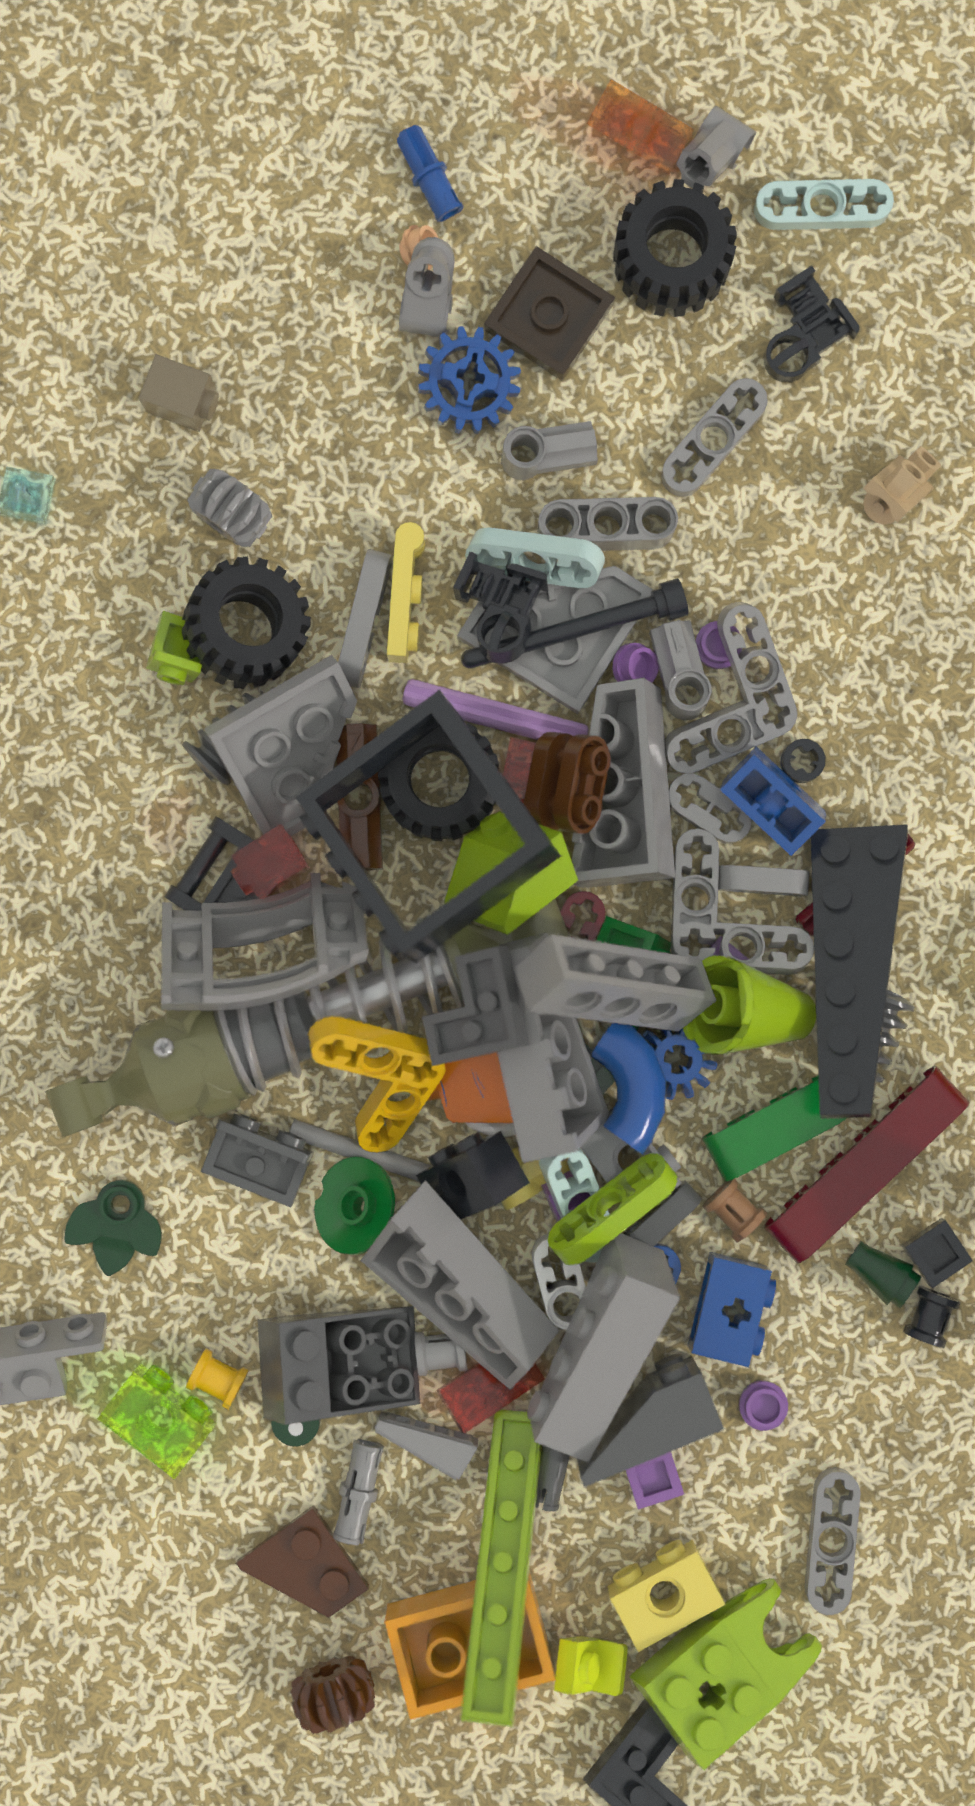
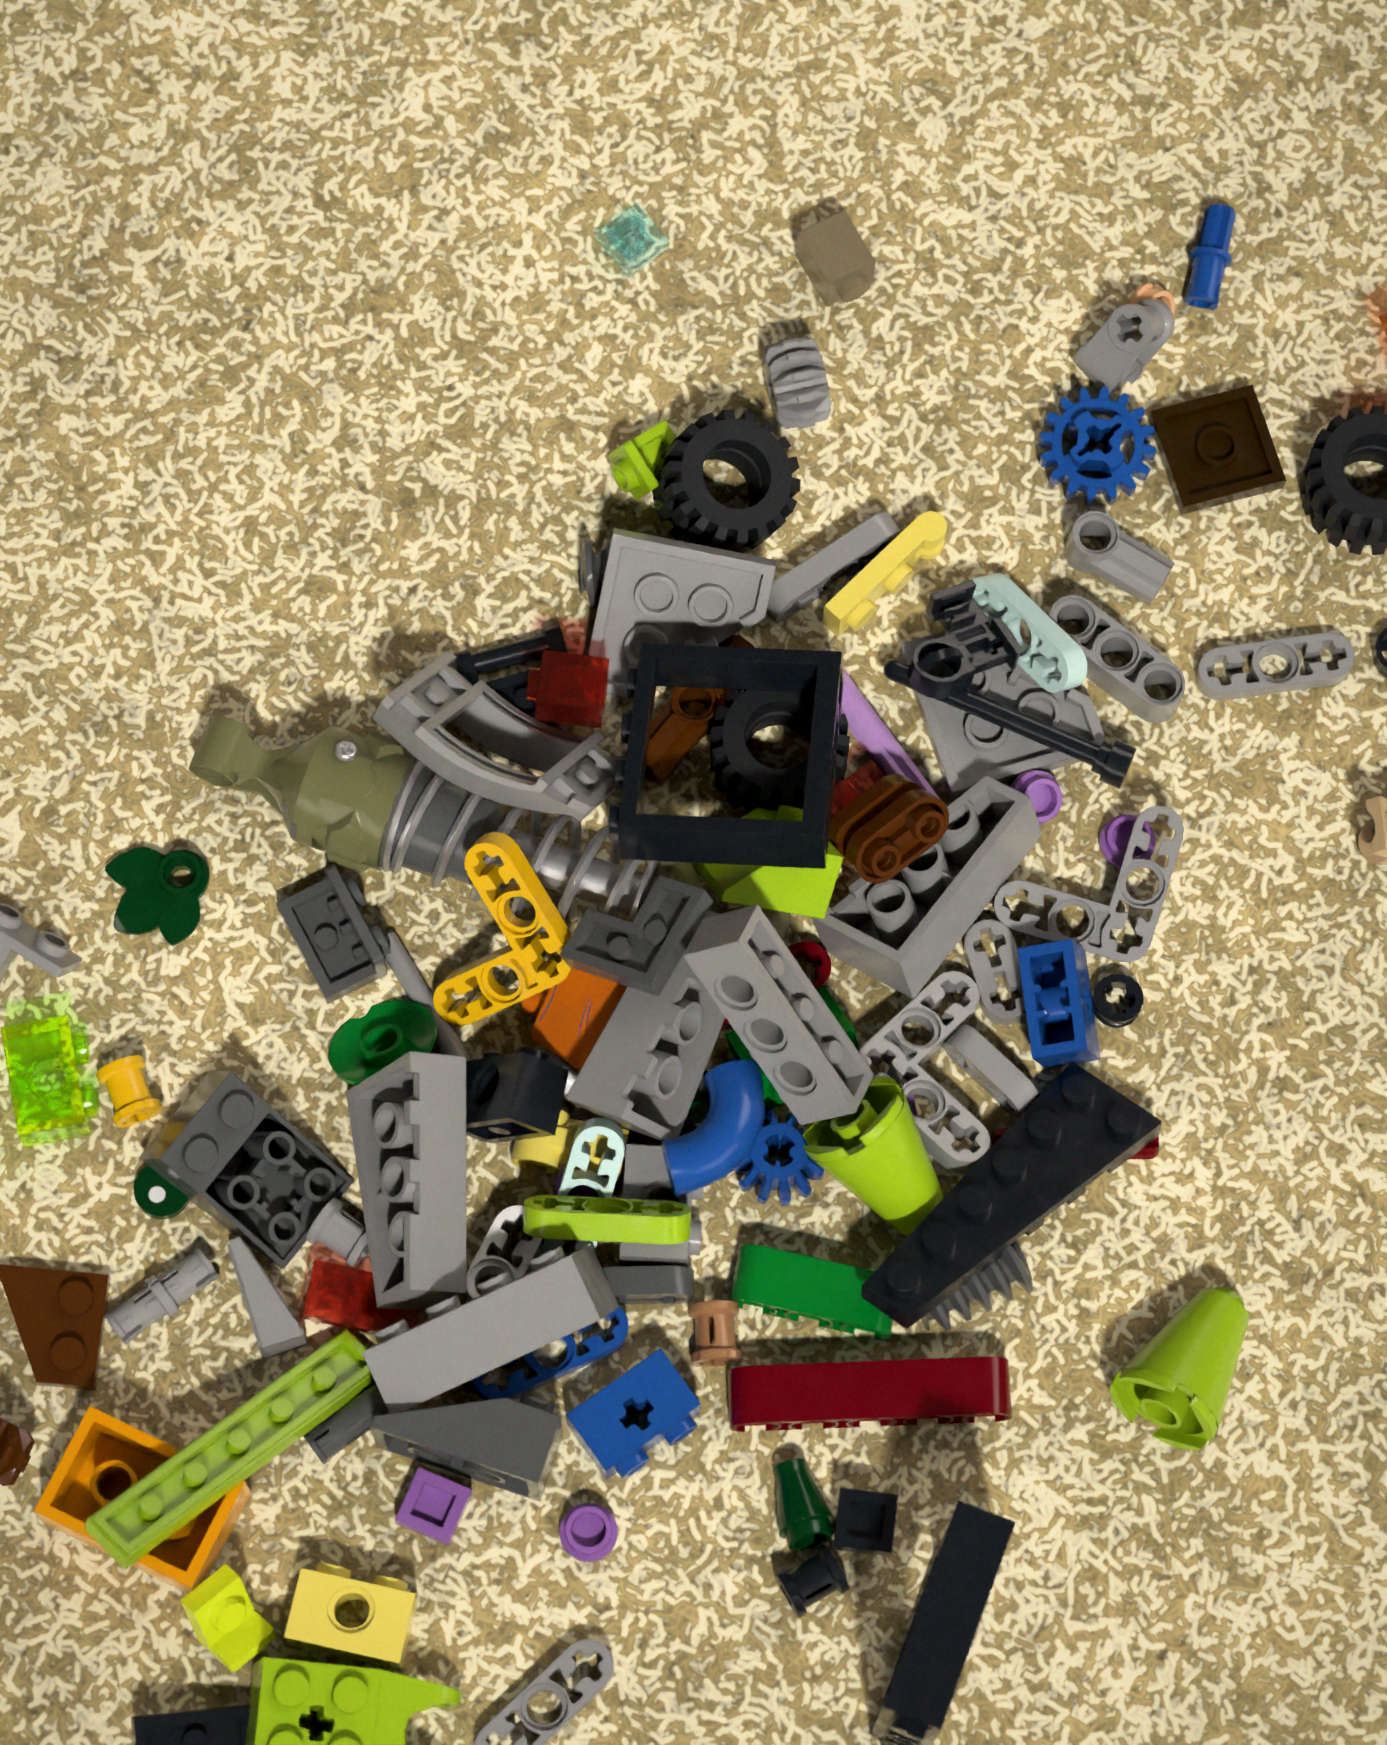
camera: 35 degrees right, 15 degrees down
(680, 666) = (1074, 832): light grey piece -> none

